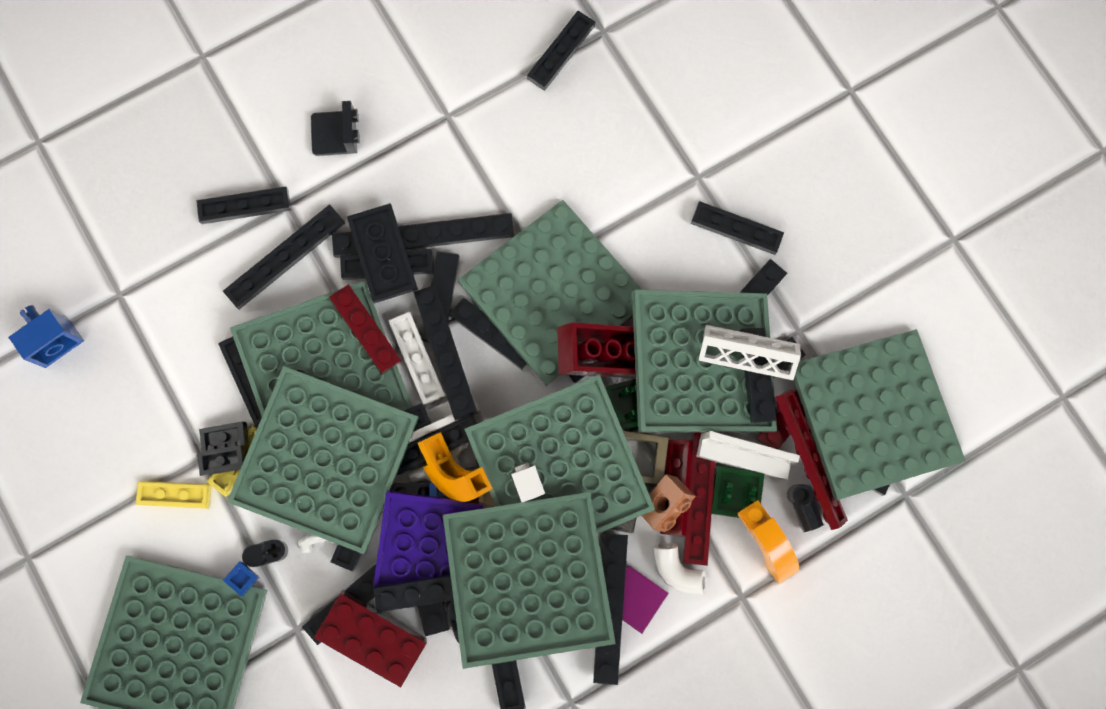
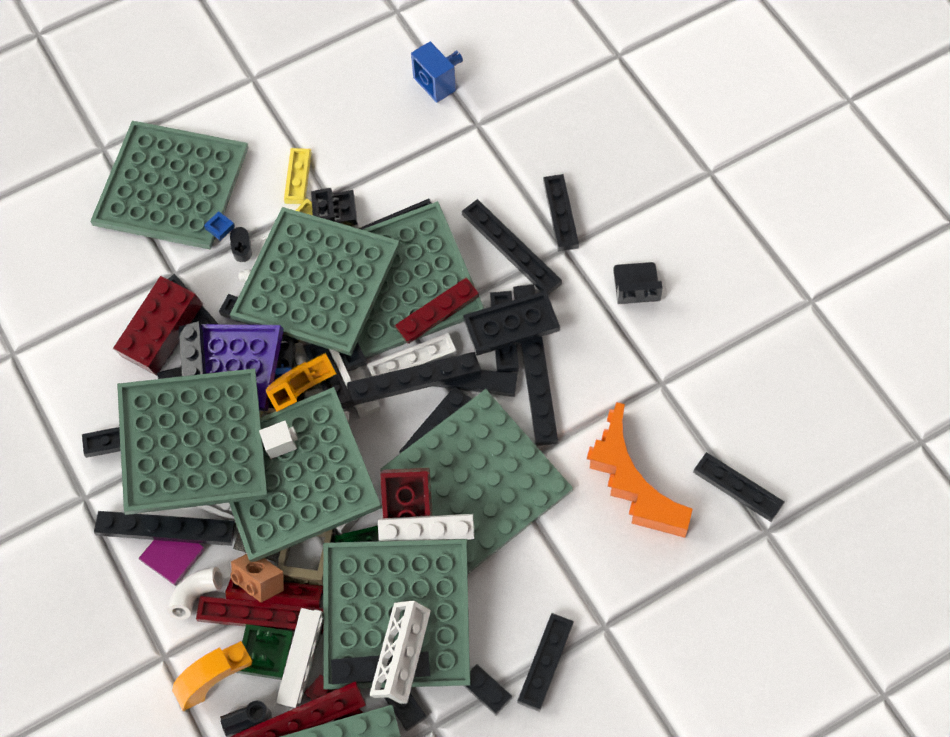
camera: 95 degrees right, 15 degrees down
(556, 149) = (648, 505): none -> orange arch
(623, 329) = (426, 528): none -> white plate

